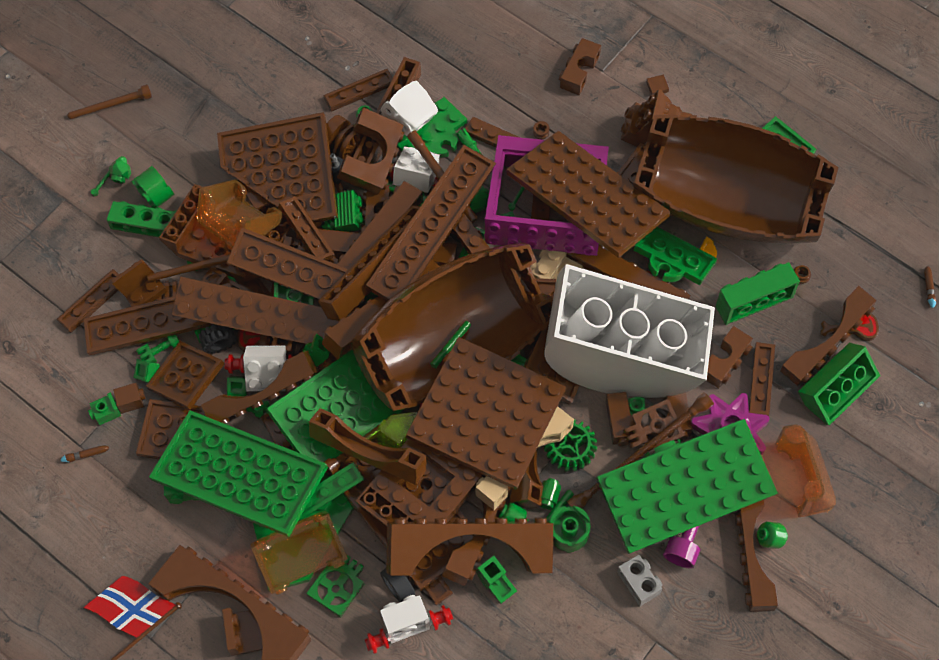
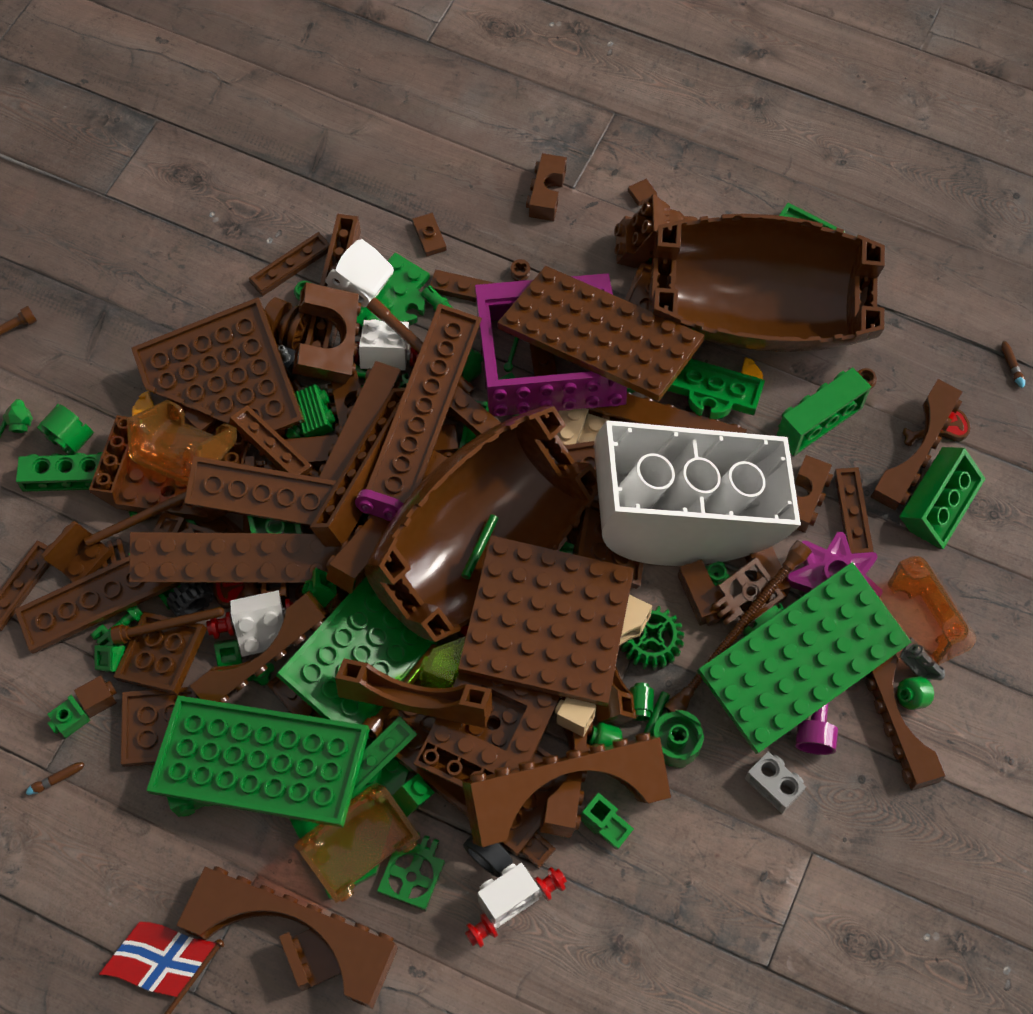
camera: 15 degrees left, 0 degrees up
(159, 354) = (121, 634): none -> reddish brown piece
(219, 177) = (143, 403): none -> light orange tile
(350, 526) = (412, 795): none -> green brick
(374, 293) = (377, 504): none -> magenta plate
(475, 87) = (429, 234): none -> reddish brown plate
(783, 511) = (920, 662): none -> dark grey hinge

